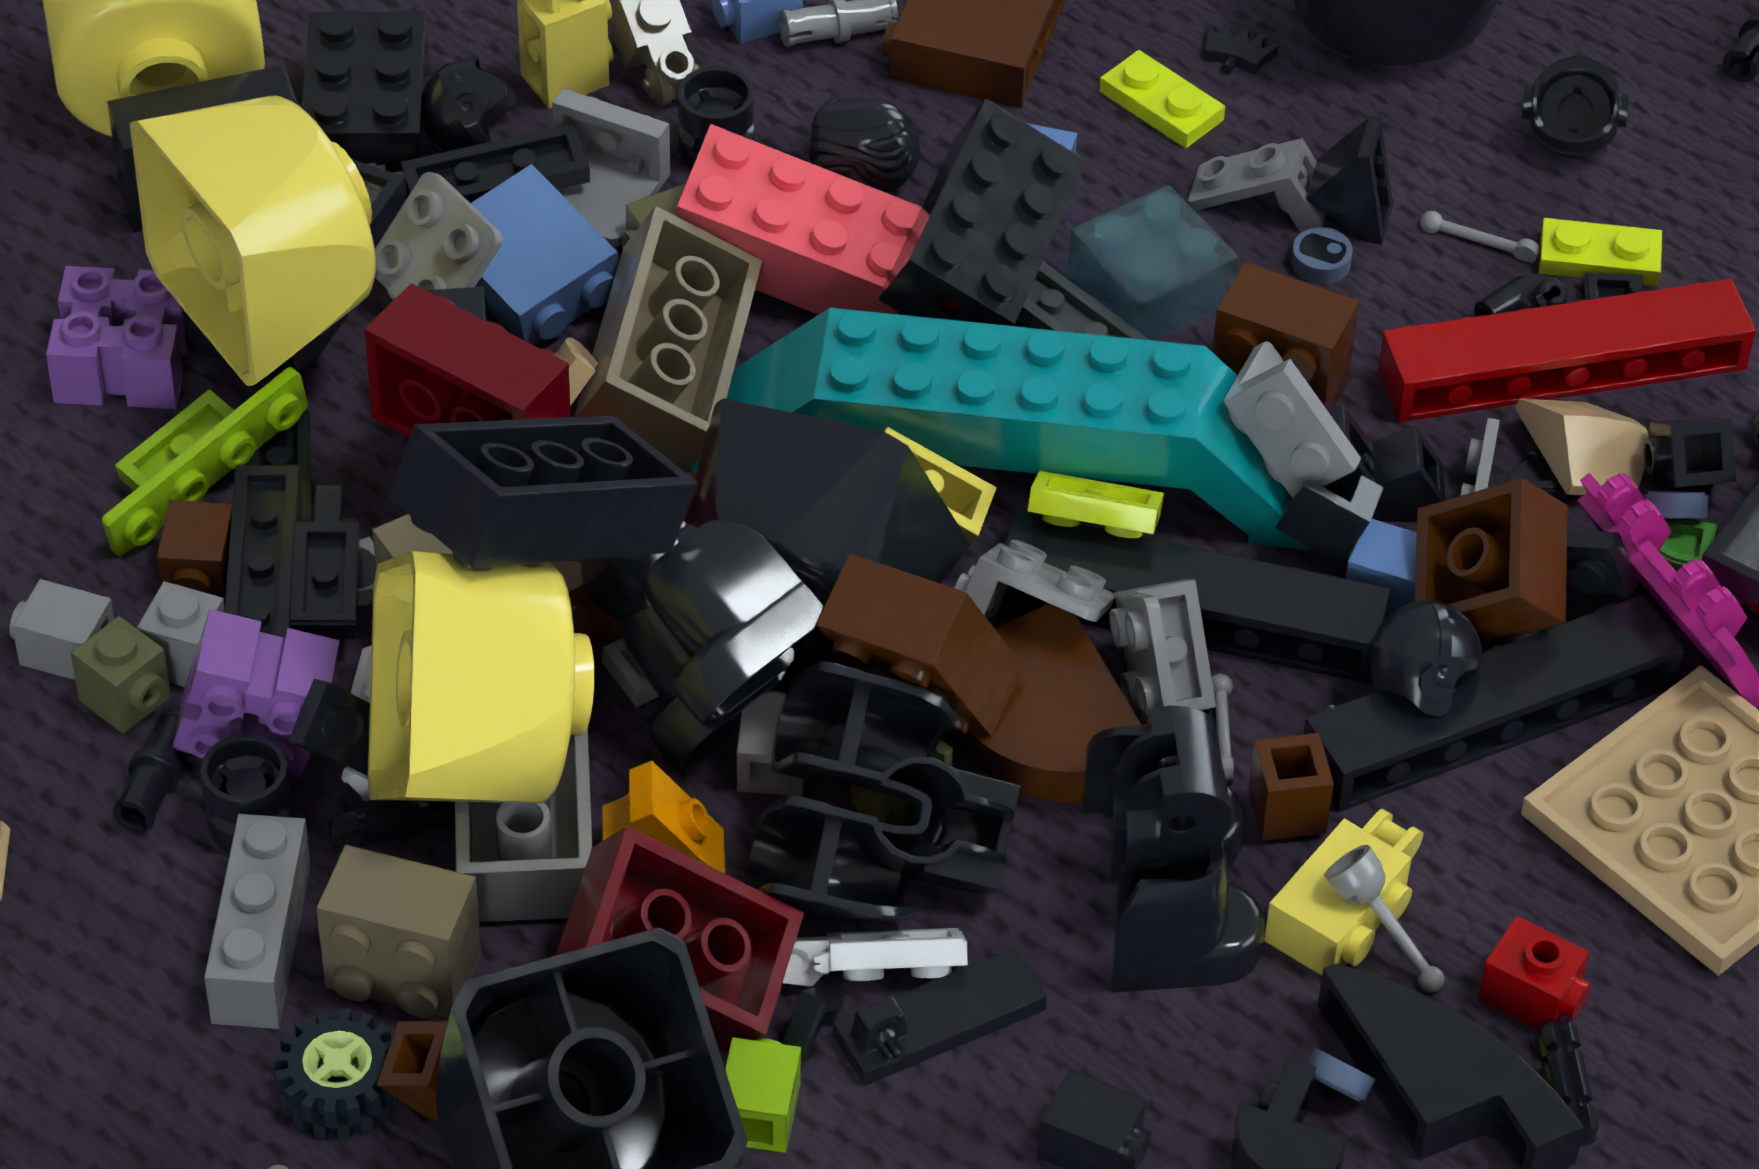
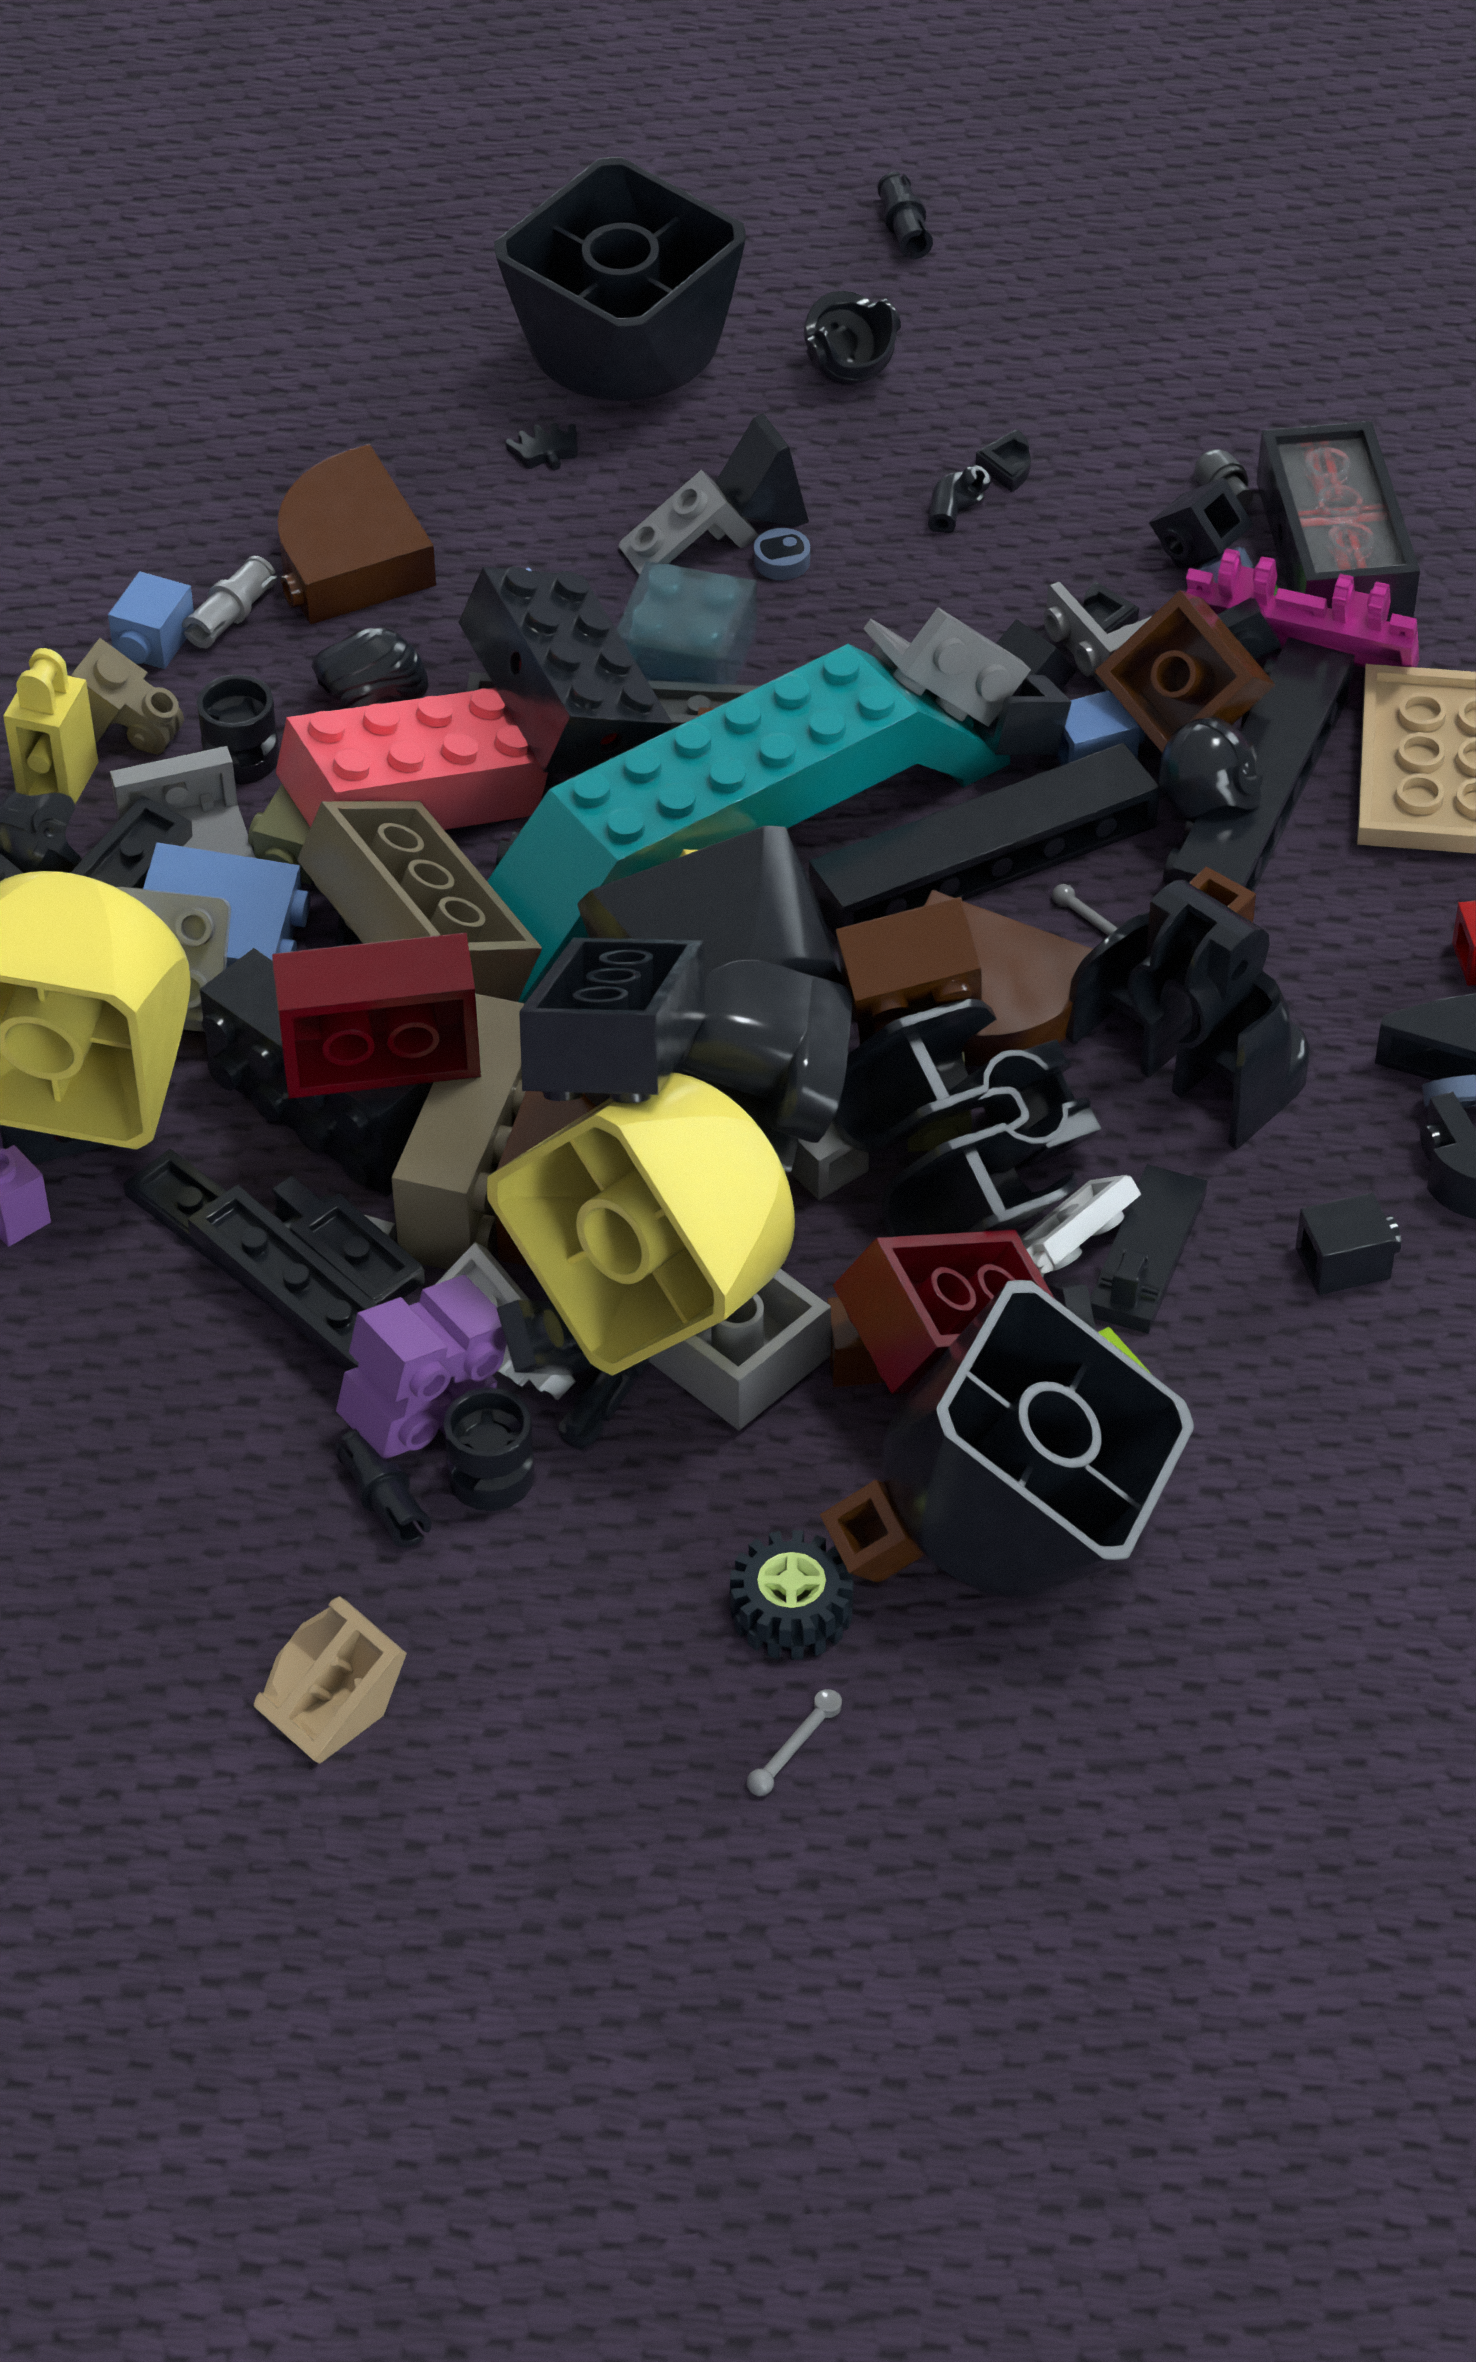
camera: 40 degrees left, 0 degrees up
(55, 624) = (185, 1437): light grey brick -> none
(121, 674) = (279, 1434): olive brick -> none
(176, 624) = (291, 1374): light grey brick -> none
(195, 454) = (123, 1236): lime bracket -> none
(196, 546) = (218, 1306): reddish brown brick -> none
(258, 921) = (606, 1531): light grey brick -> none
(398, 932) = (735, 1457): dark tan brick -> none
(667, 815) = (822, 1248): light orange brick -> none
(1024, 569) = (883, 892): light grey bracket -> none
(1072, 499) = (885, 808): neon yellow plate -> none
(1162, 98) = (536, 513): neon yellow plate -> none
(1162, 647) = (1031, 883): light grey bracket -> none
(1297, 318) = (840, 598): reddish brown brick -> none
(1320, 926) = (1322, 971): light yellow brick -> none
(1360, 879) = (1345, 942): light grey hinge -> none
(1523, 250) = (913, 463): light grey hinge -> none
(1565, 350) = (1031, 510): red brick -> none
(1580, 247) = (964, 431): neon yellow plate -> none
(1584, 440) = (1117, 565): tan slope -> none

